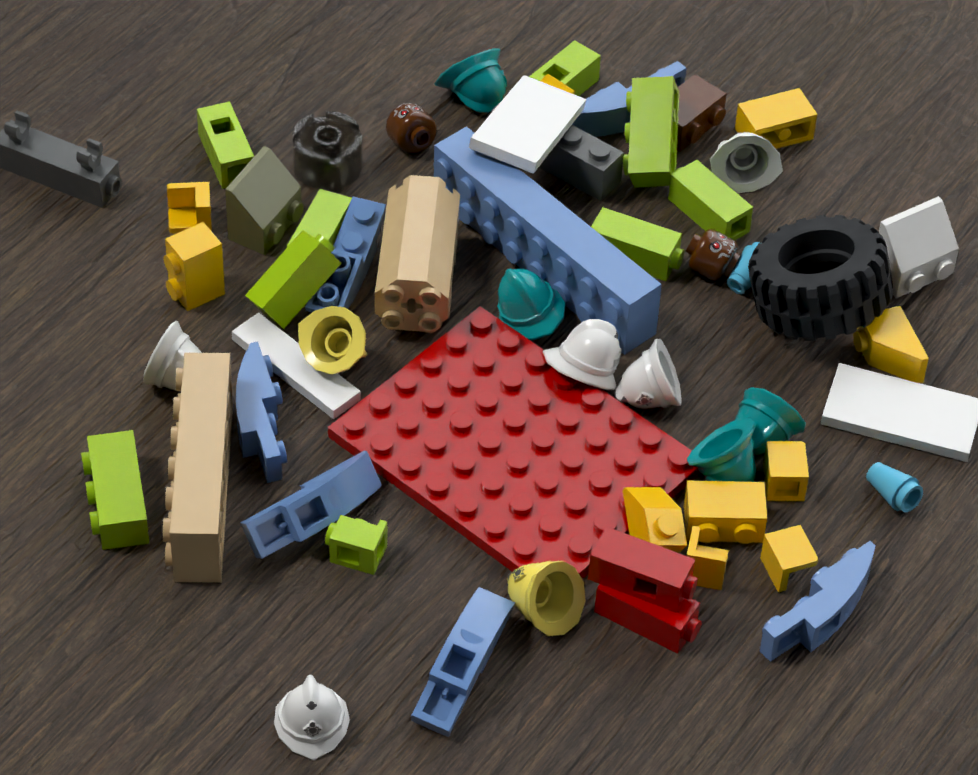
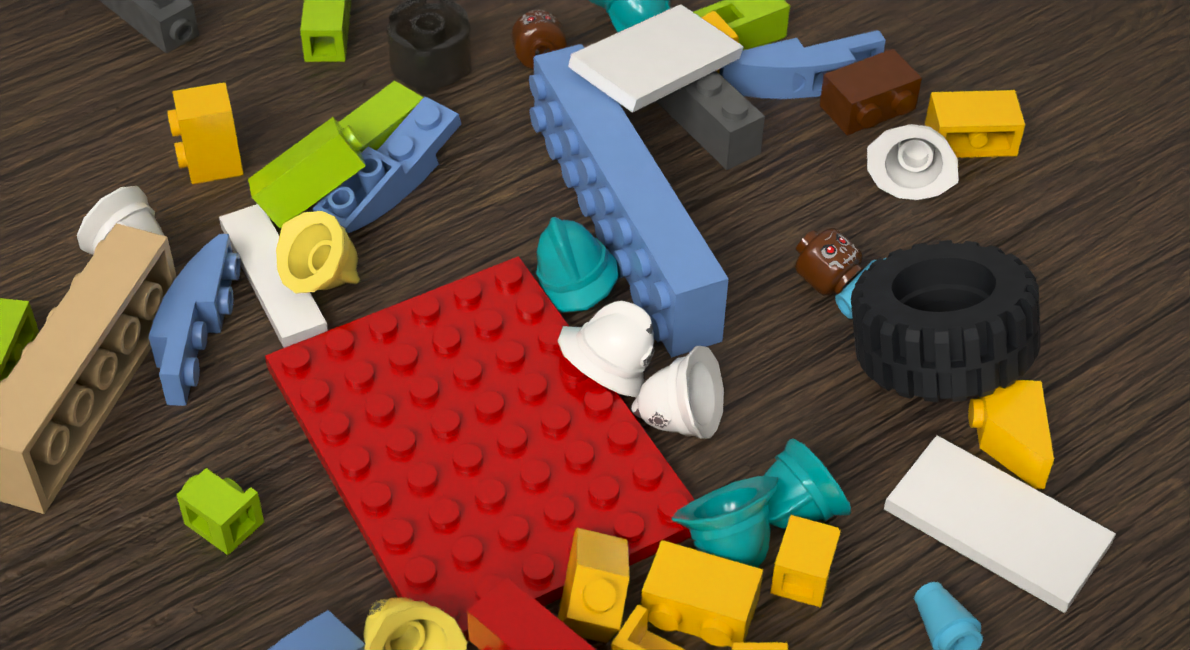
camera: 20 degrees right, 0 degrees up
(188, 205) = (253, 72): yellow panel -> none
(262, 202) = (322, 76): olive slope -> none
(313, 506) = (189, 447): medium blue slope -> none
(417, 255) = (463, 180): tan brick -> none
(646, 244) = (740, 227): lime brick -> none
(652, 131) = (811, 101): lime brick -> none
(709, 201) = (853, 199): lime brick -> none
(919, 246) = (1092, 312): white slope -> none

